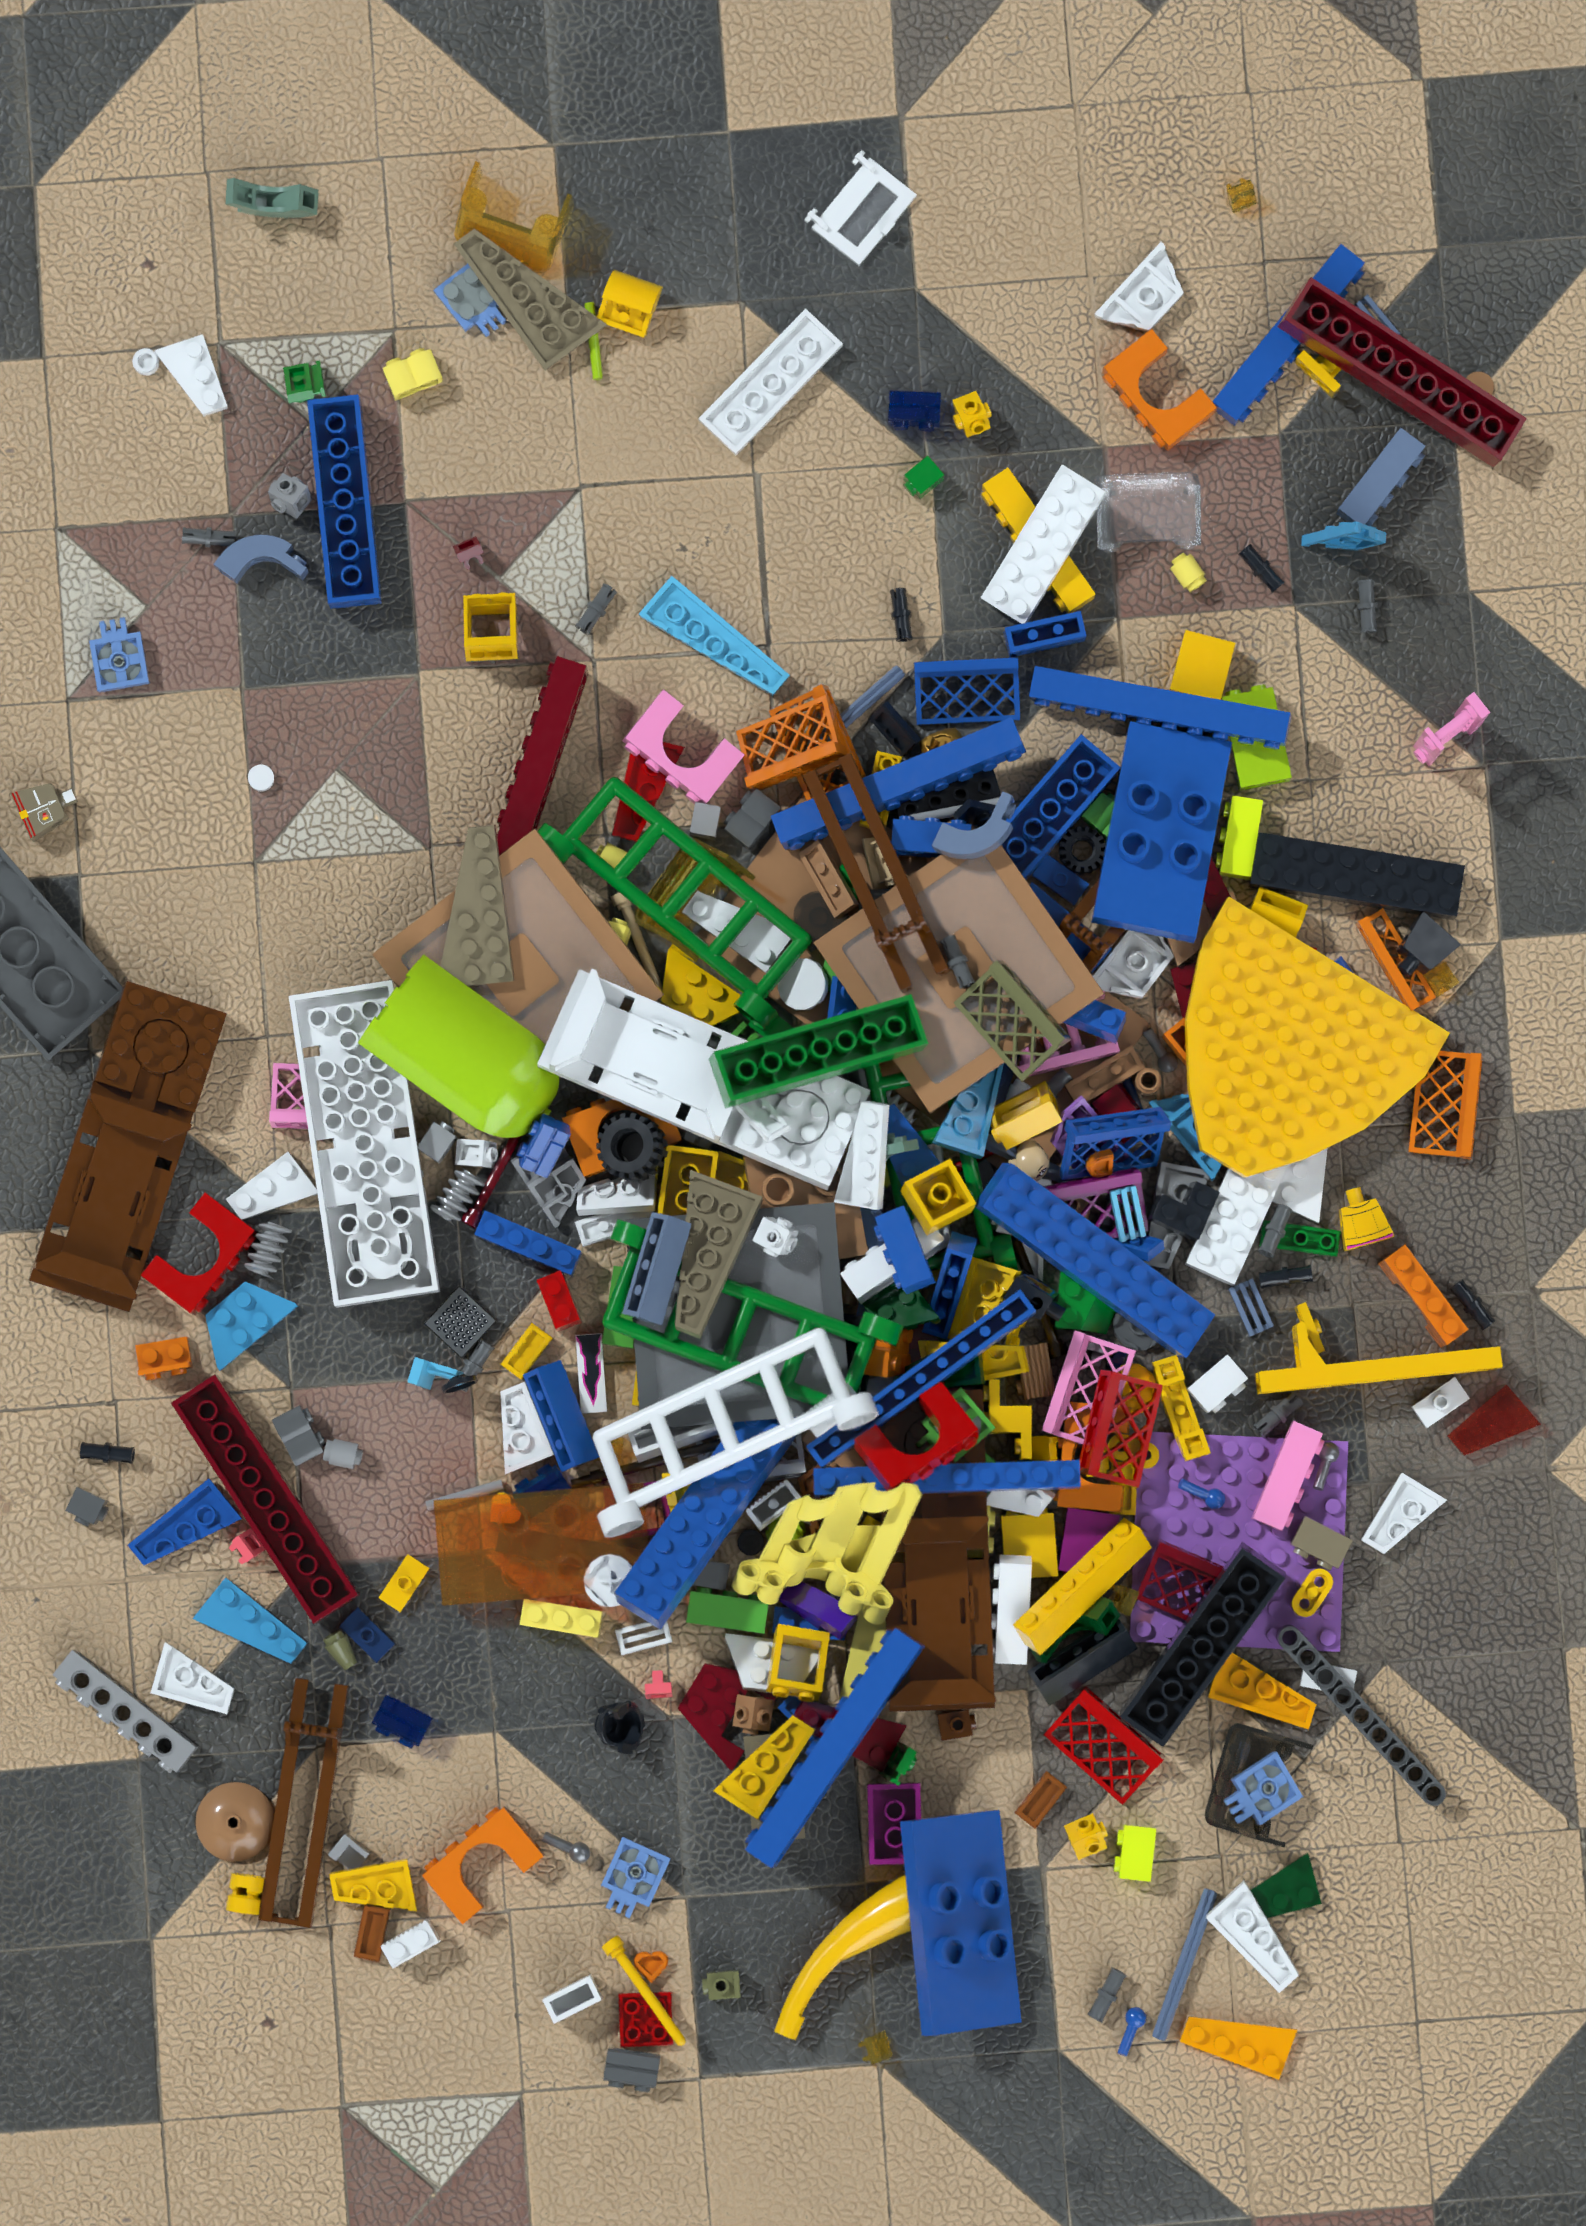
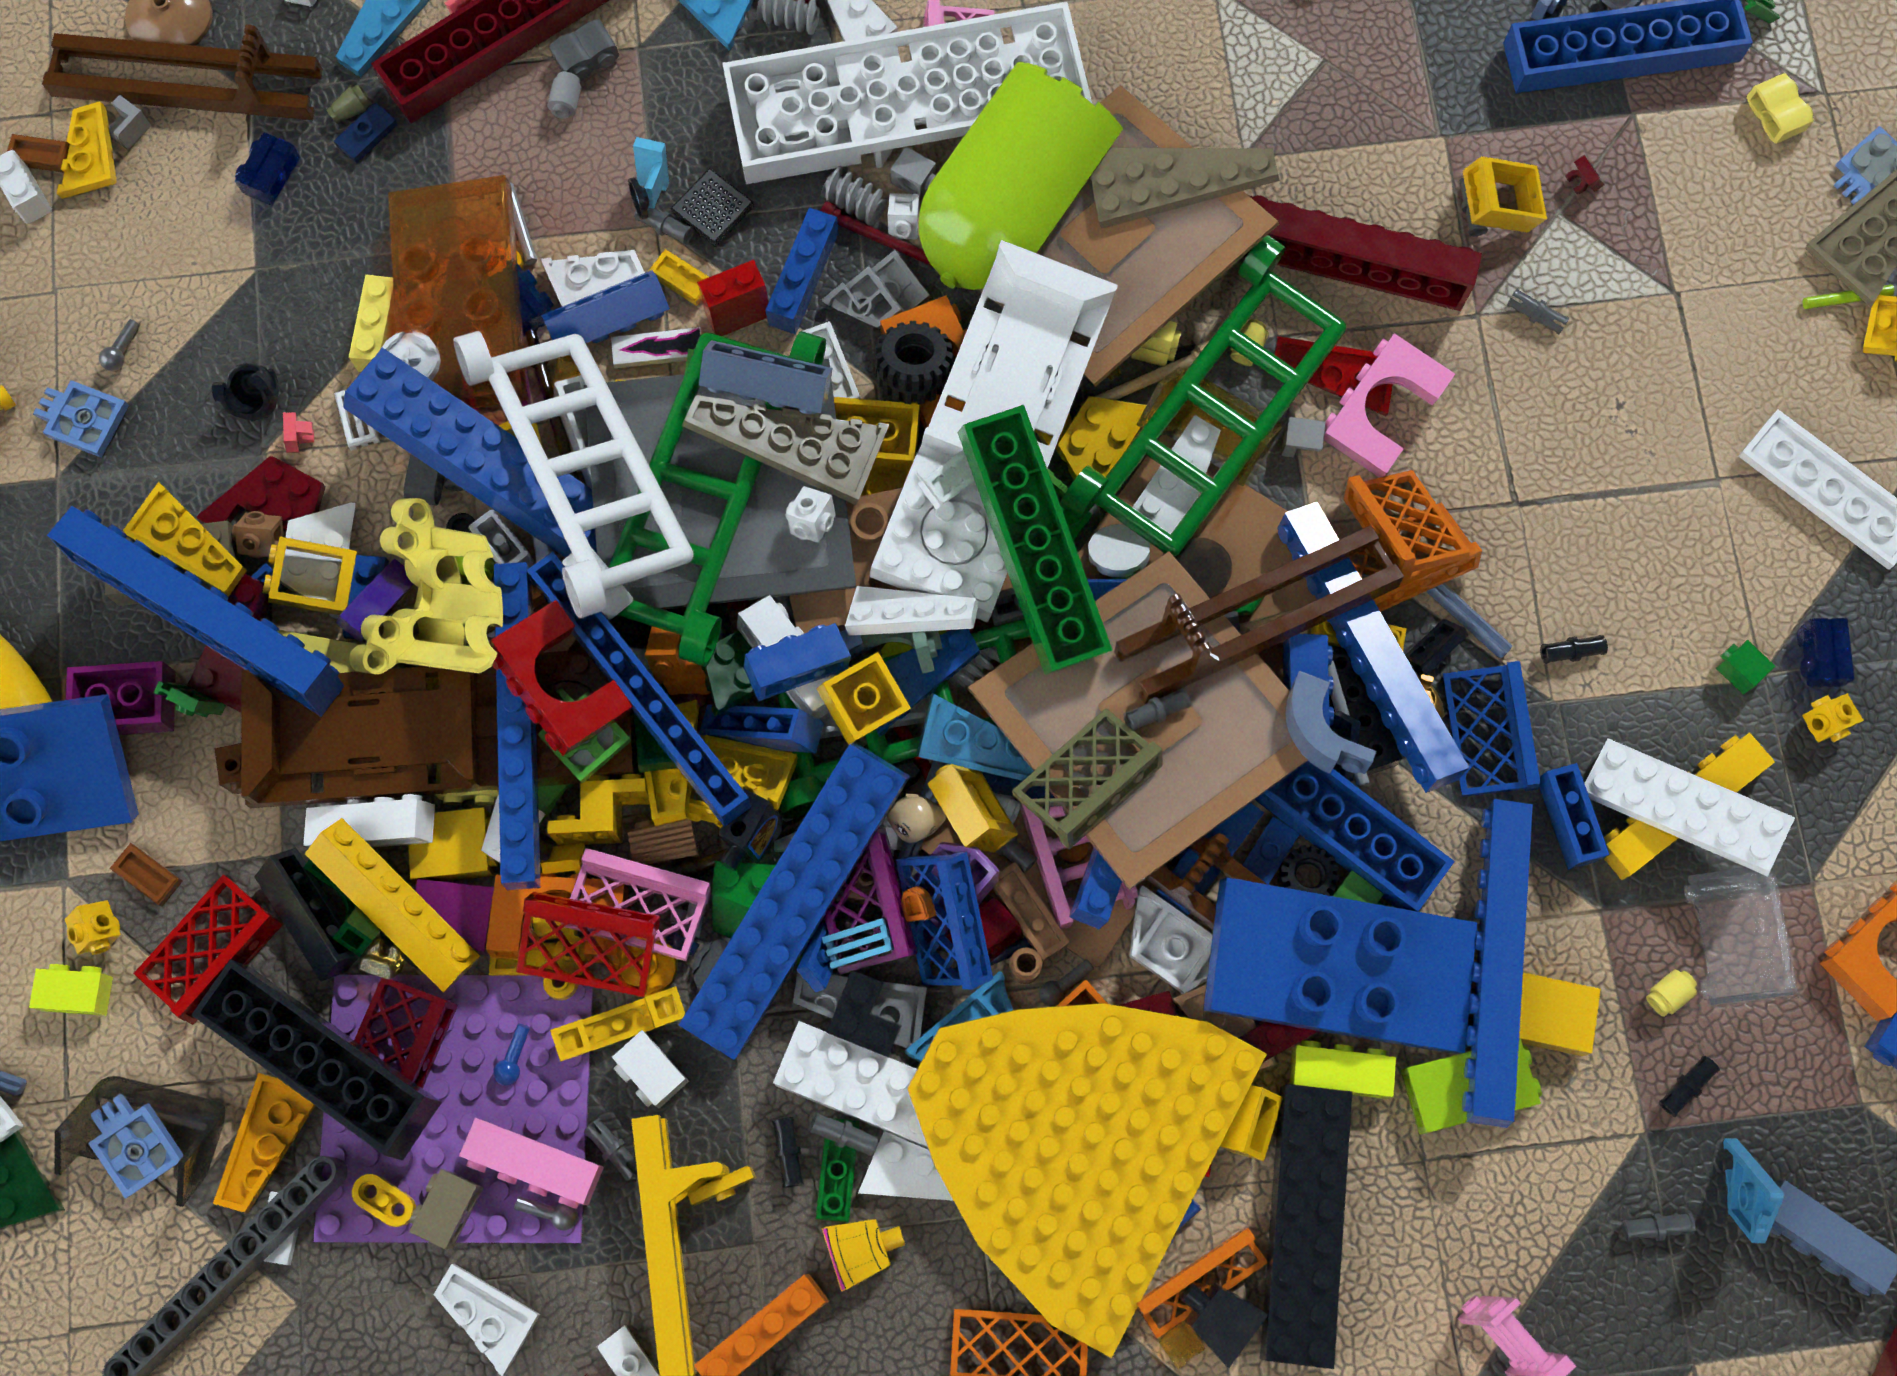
camera: 85 degrees right, 10 degrees down
(245, 1903) = (84, 20): yellow wheel -> none
(404, 1583) = (421, 165): yellow plate -> none
(446, 1875) = (92, 222): orange arch -> none
(544, 1145) = (913, 274): brick -> none
(617, 1196) = (858, 361): white wing -> none
(698, 626) = (1532, 420): medium azure wing -> none
(727, 1610) = (379, 488): bright green brick -> none
(751, 819) = (1306, 484): dark grey brick -> none
(828, 879) = (1245, 569): medium nougat plate -> none
(1241, 1287) = (774, 1097): sand blue tile -> none

